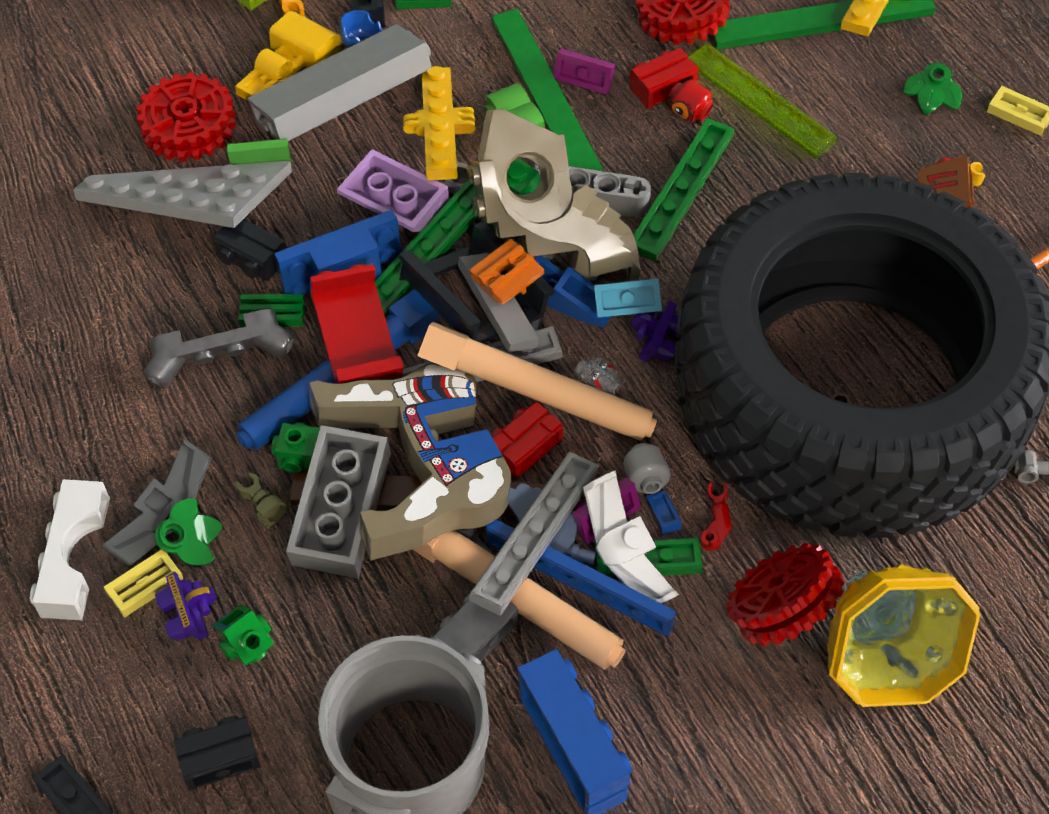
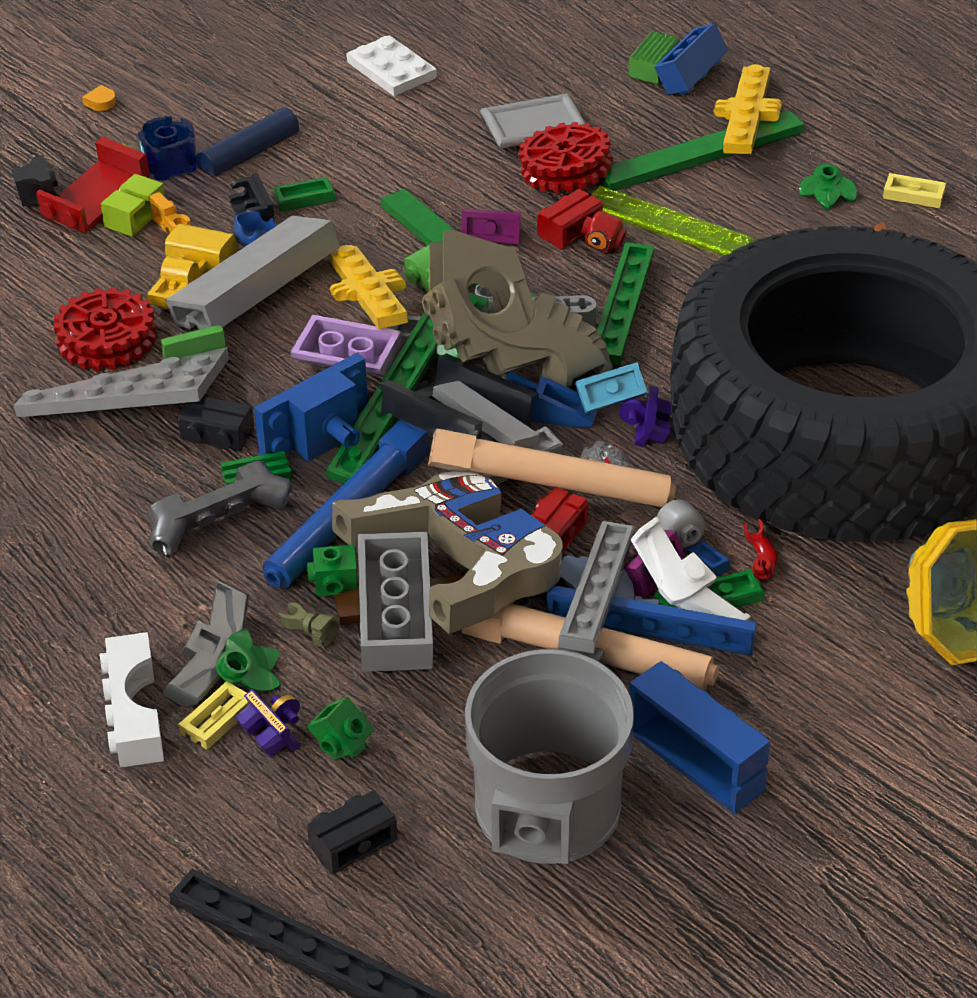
camera: 15 degrees left, 15 degrees down
(354, 325) = (351, 452): red panel -> none
(507, 257) = (488, 384): orange piece -> none
(785, 594) = (854, 583): red piece -> none

